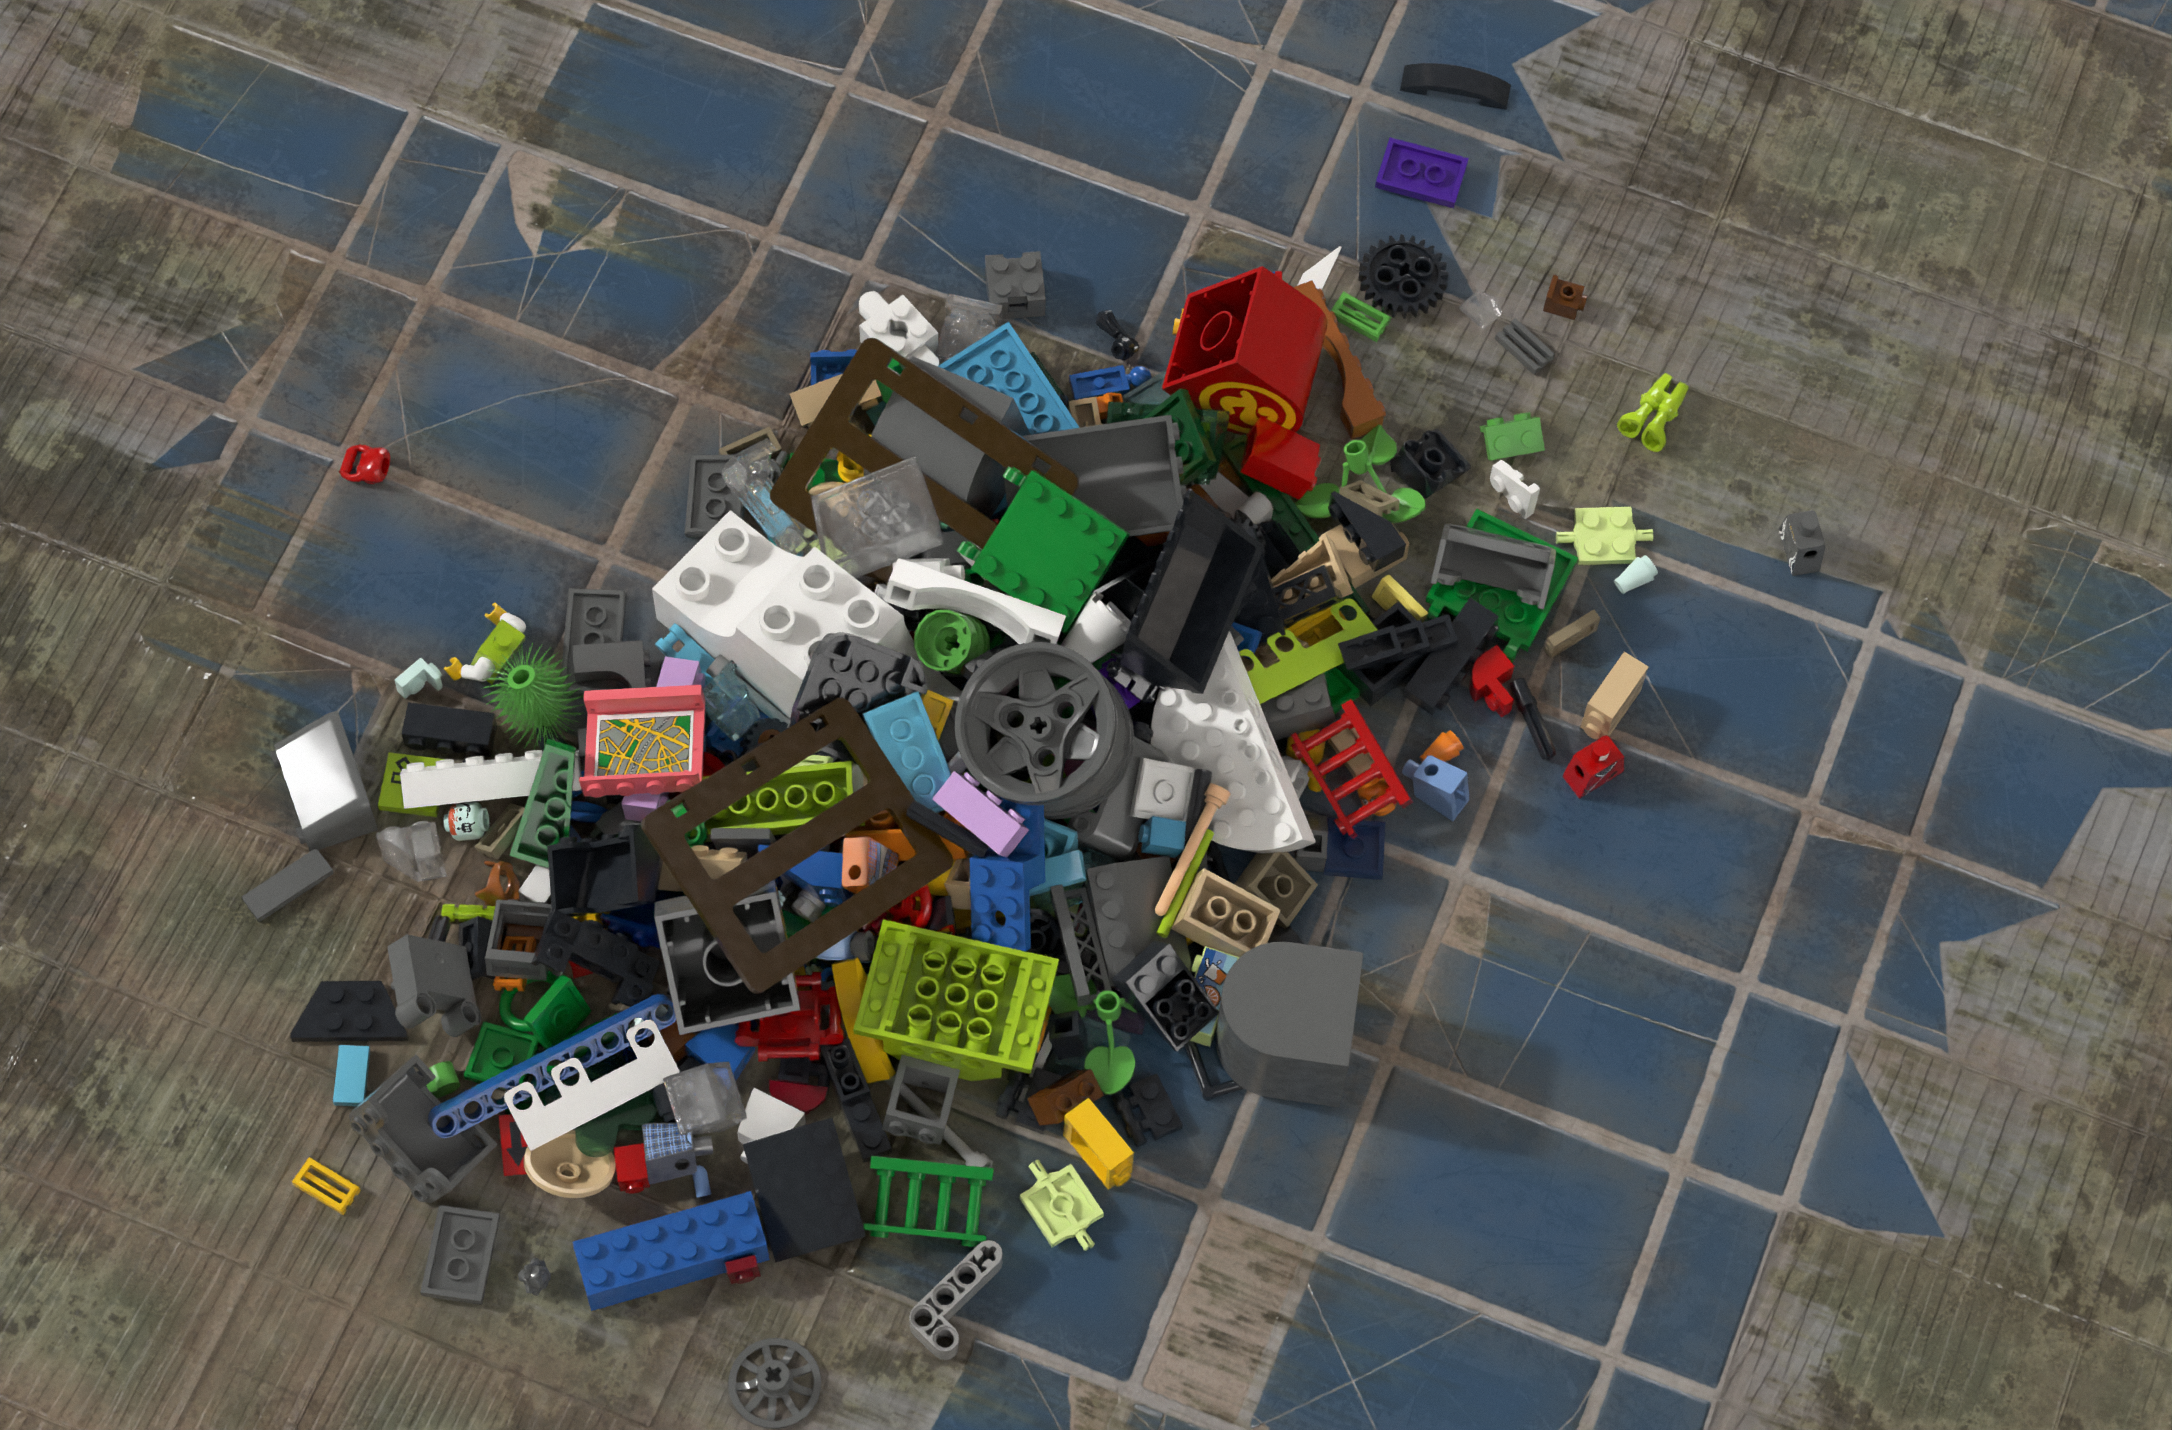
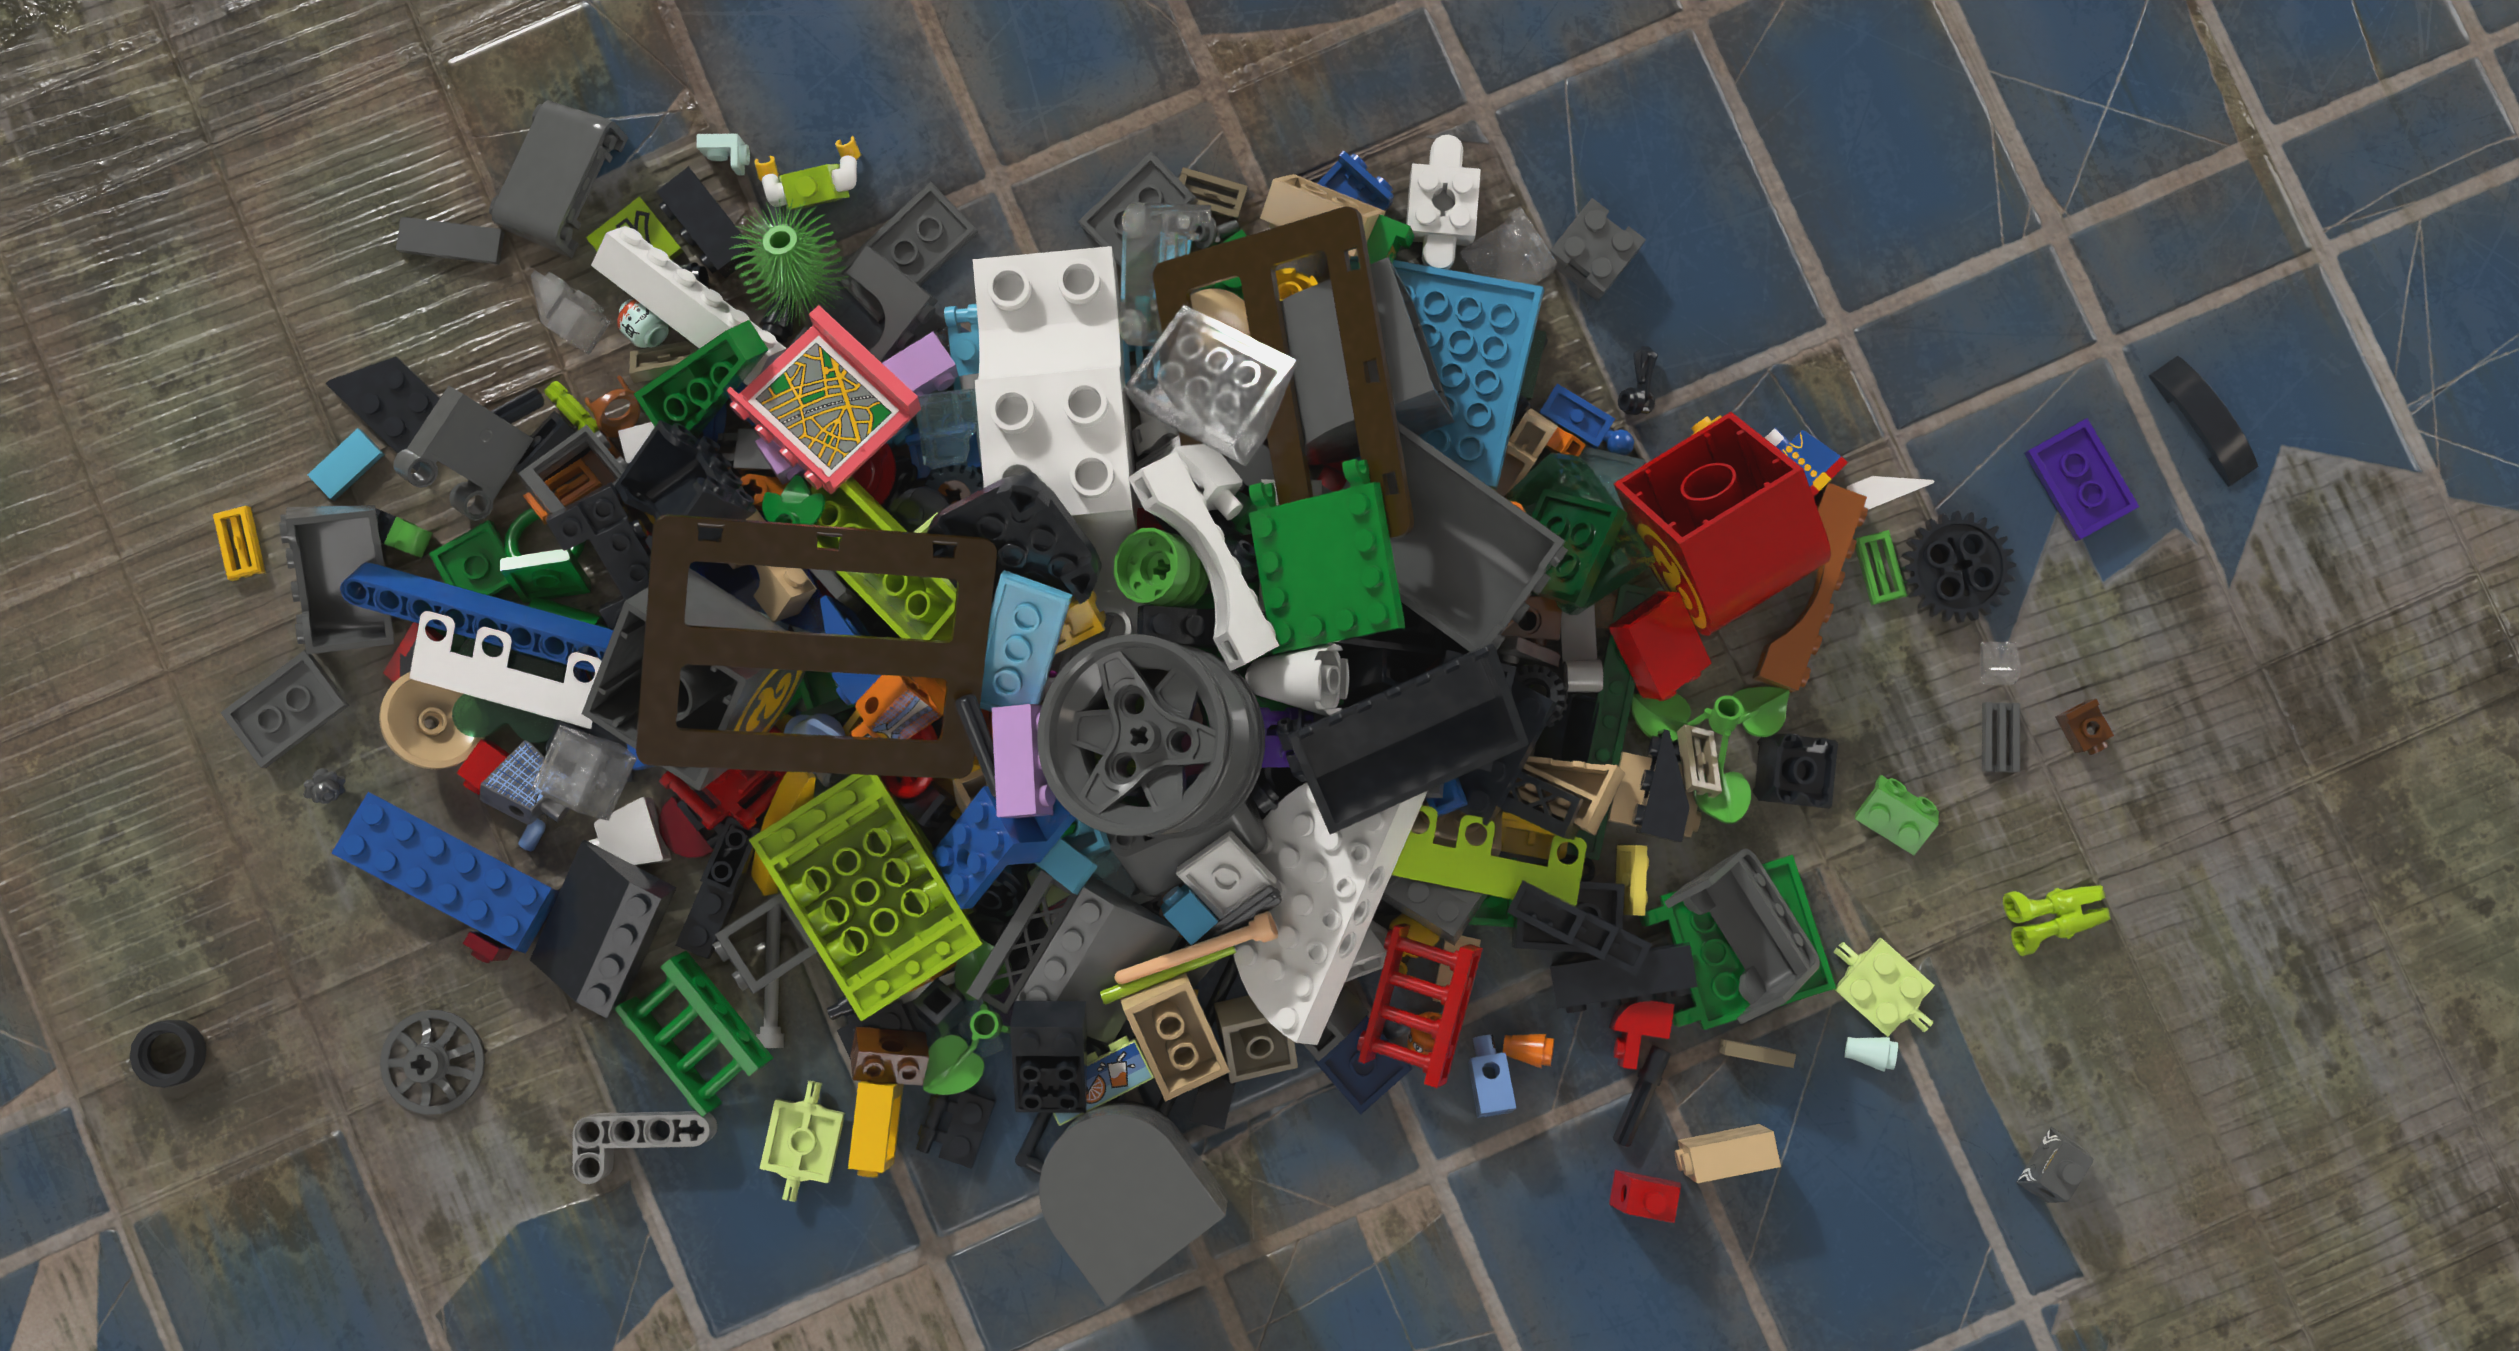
camera: 50 degrees right, 20 degrees up
(1519, 495) = (1847, 865): white wing -> none

